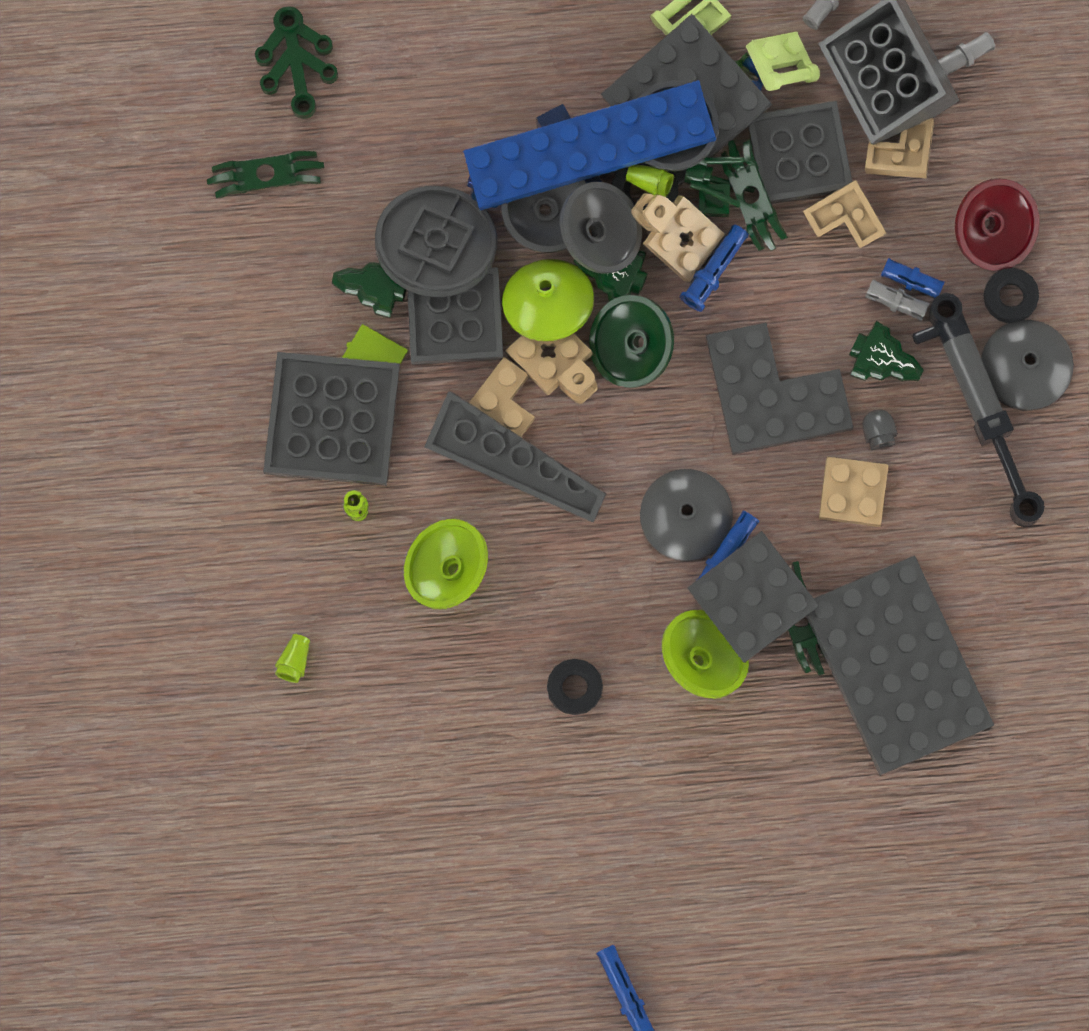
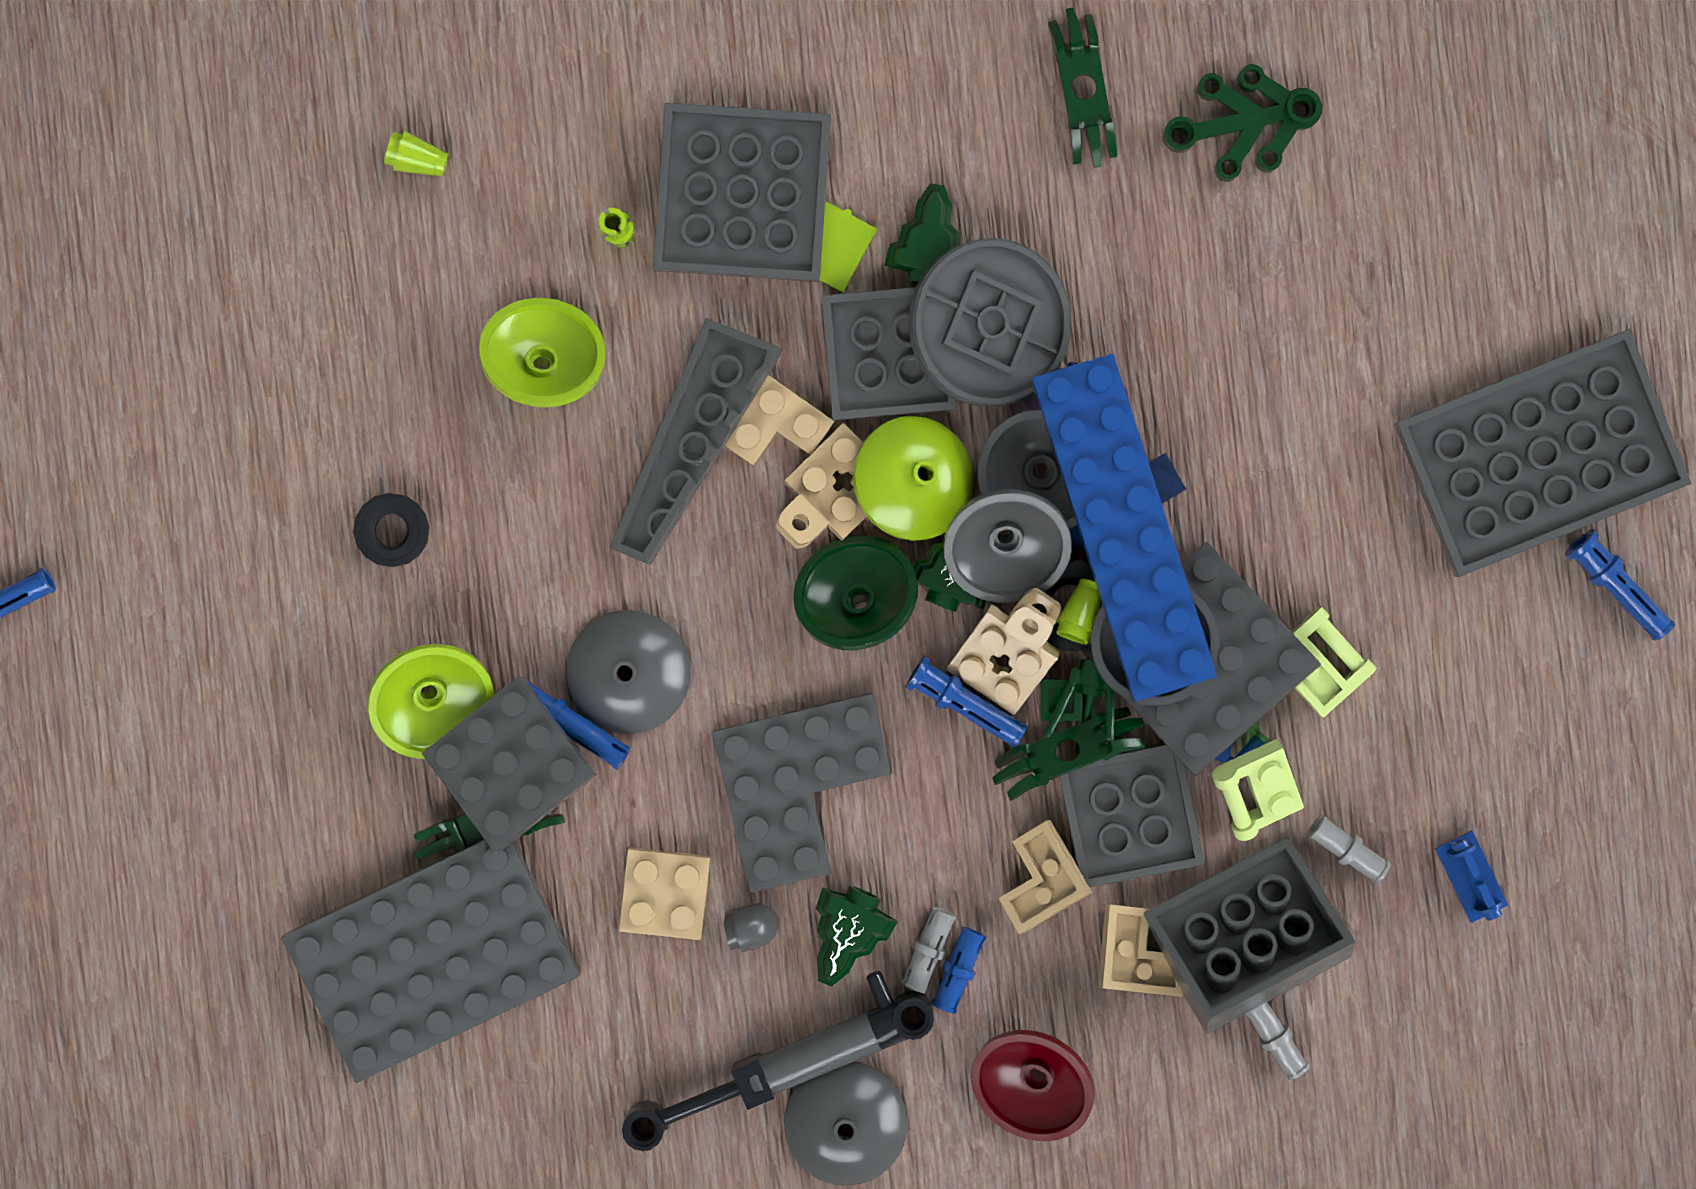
camera: 80 degrees right, 10 degrees up
(1015, 277) = (944, 1127): black tyre -> none

